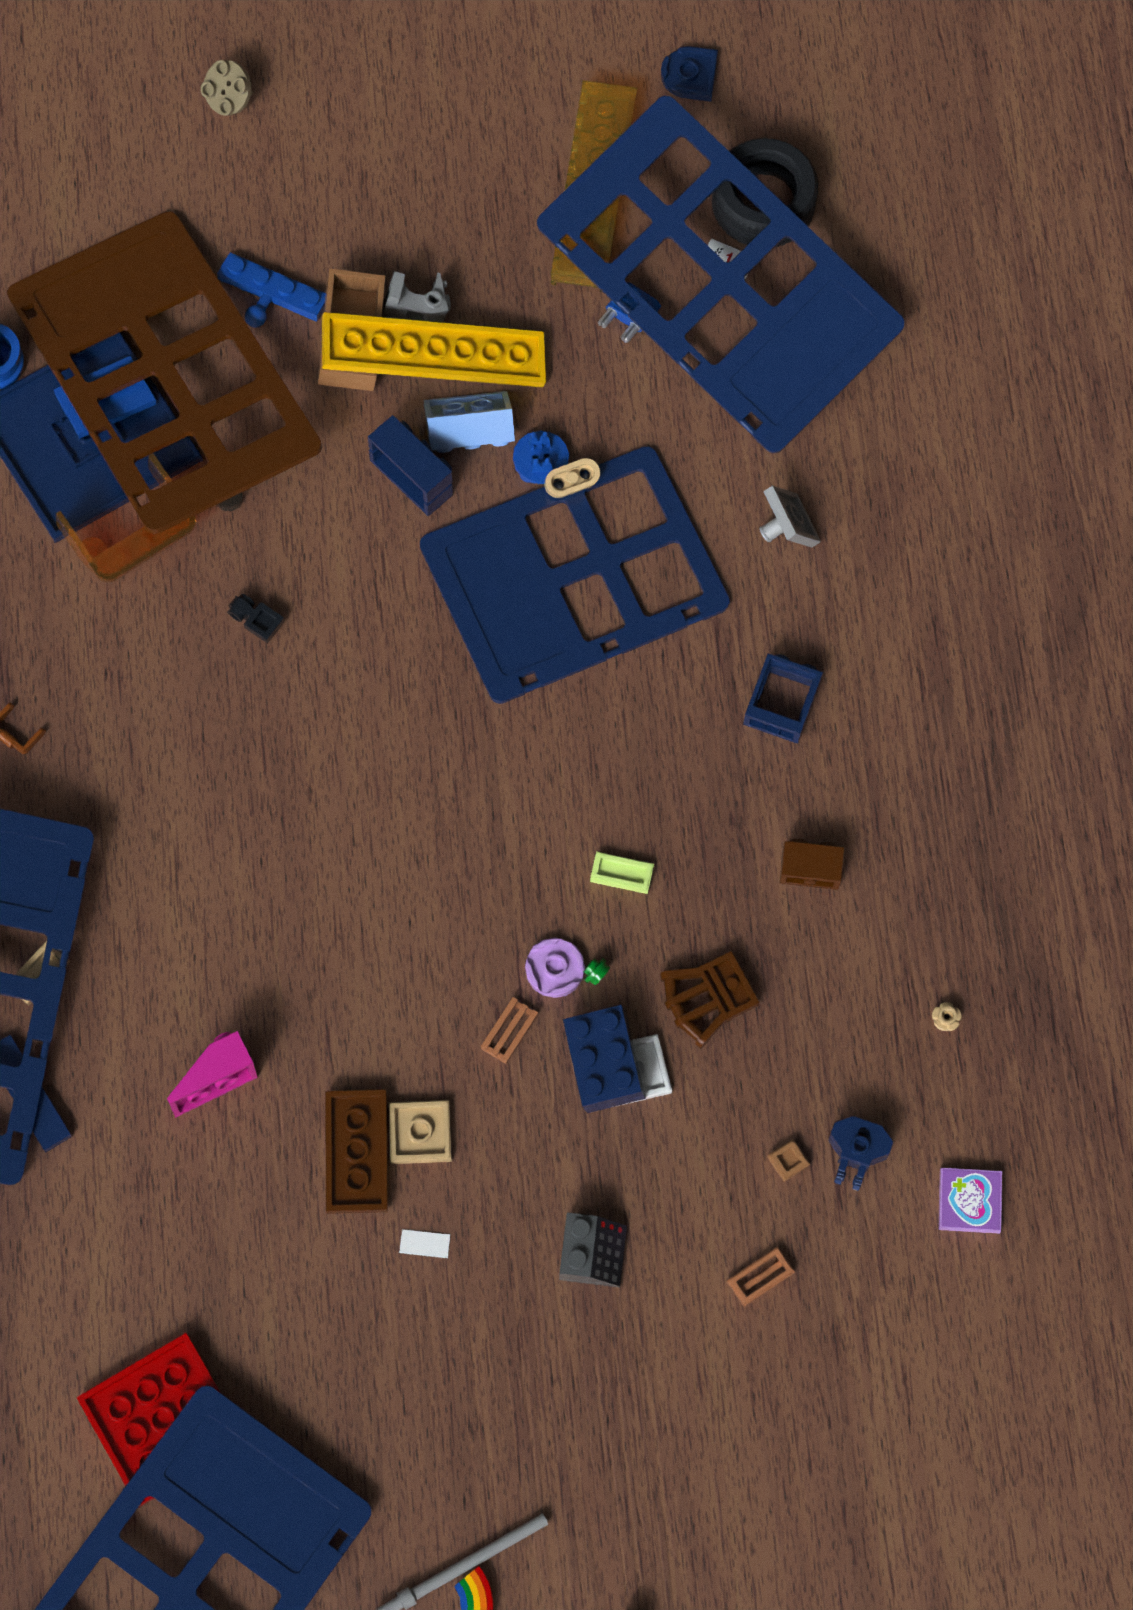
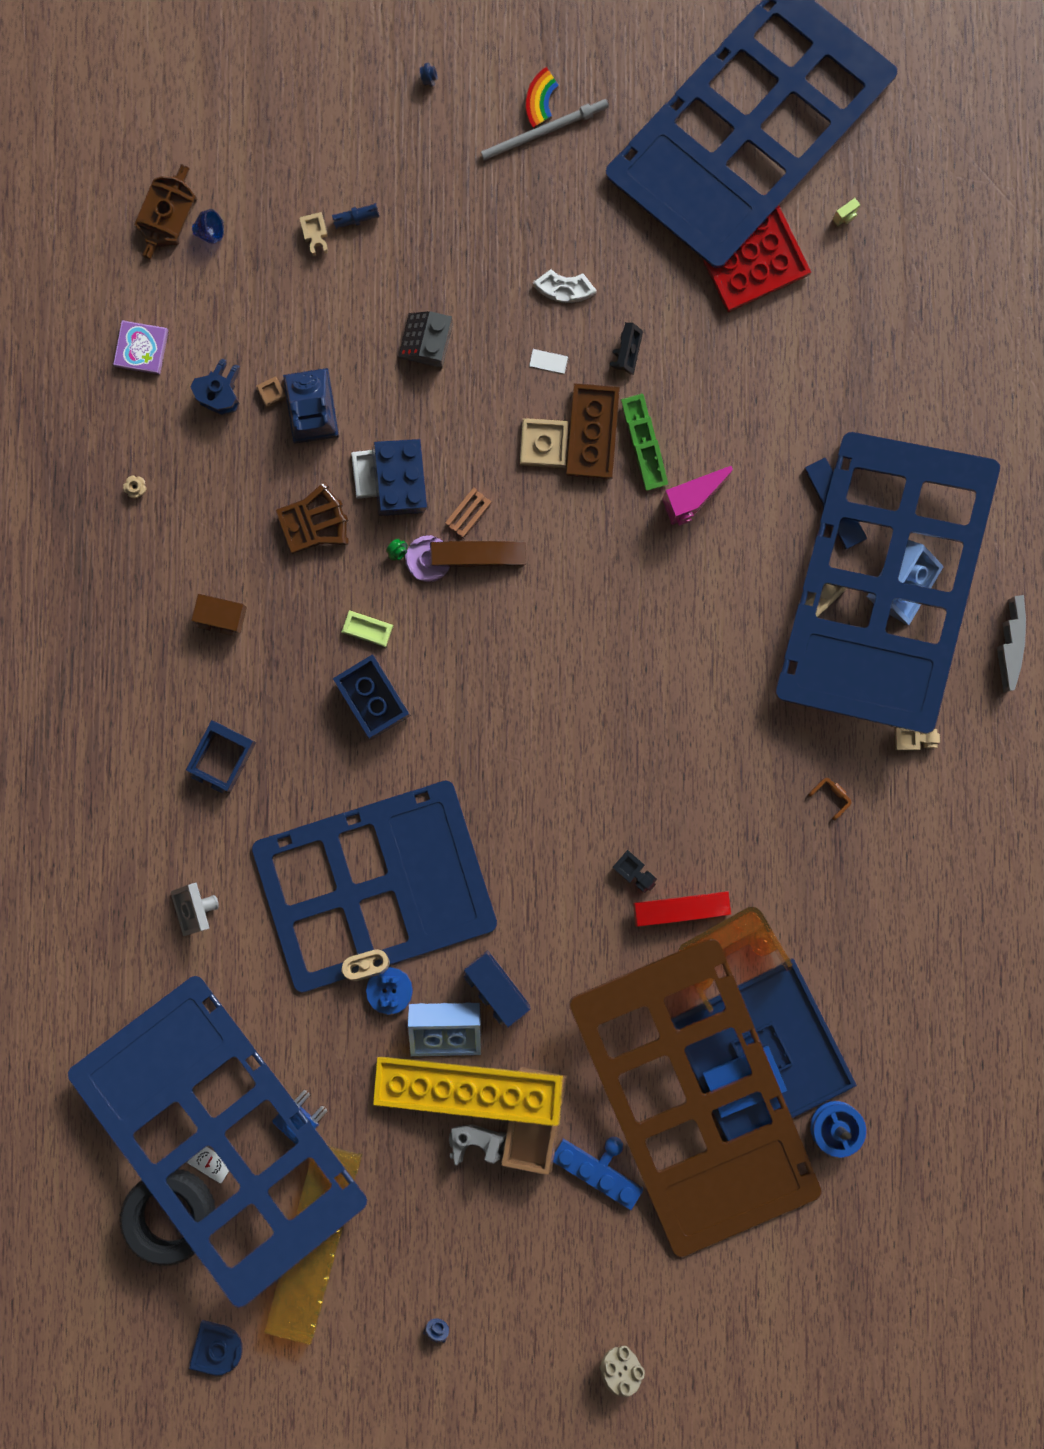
camera: 170 degrees left, 15 degrees up
(30, 1488) = (847, 212): none -> yellowish green plate
(194, 578) = (682, 908): none -> red slope
(287, 1146) = (644, 441): none -> bright green slope
(317, 1264) = (629, 350): none -> black plate
(414, 1343) = (564, 289): none -> white tile
(442, 112) = (436, 1330): none -> dark blue plate
(491, 975) = (477, 553): none -> reddish brown slope
(604, 783) = (371, 697): none -> dark blue brick
(708, 1410) = (356, 216): none -> dark blue pin
(733, 1146) = (311, 405): none -> dark blue piece
(739, 1291) = (309, 316): nougat tile -> none
(762, 1384) = (314, 230): none -> tan plate
(904, 1369) = (209, 226): none -> clear blue piece
(952, 1408) = (165, 228): none -> reddish brown plate

